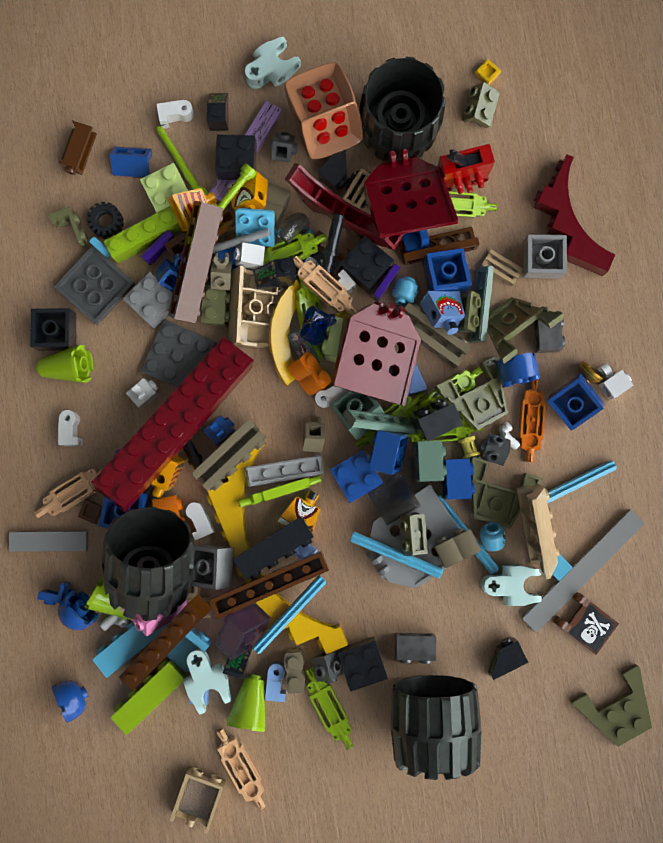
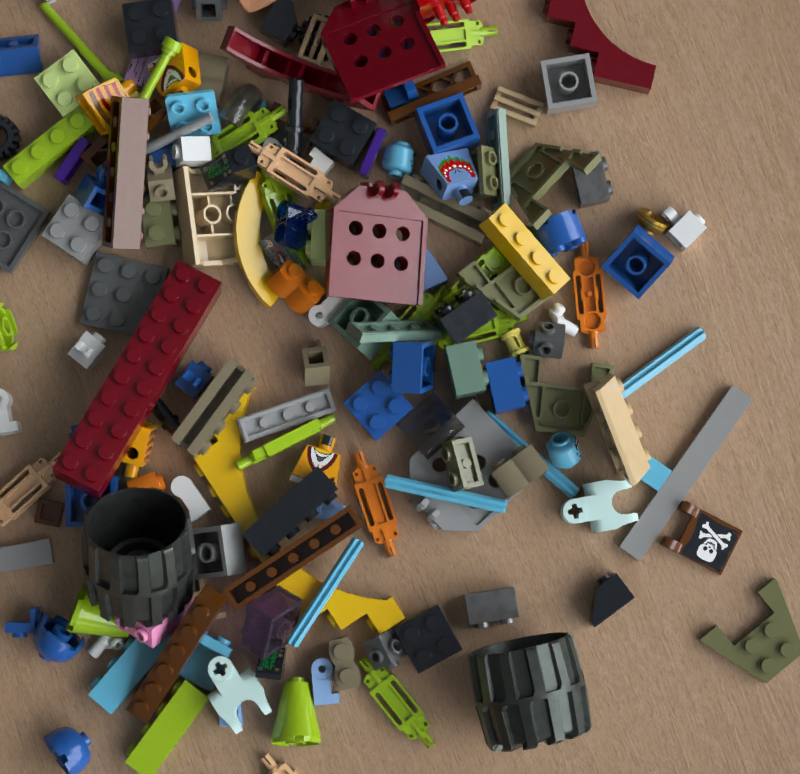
camera: 10 degrees left, 0 degrees up
(342, 571) = (383, 529): none -> orange piece
(490, 378) = (524, 252): none -> yellow brick

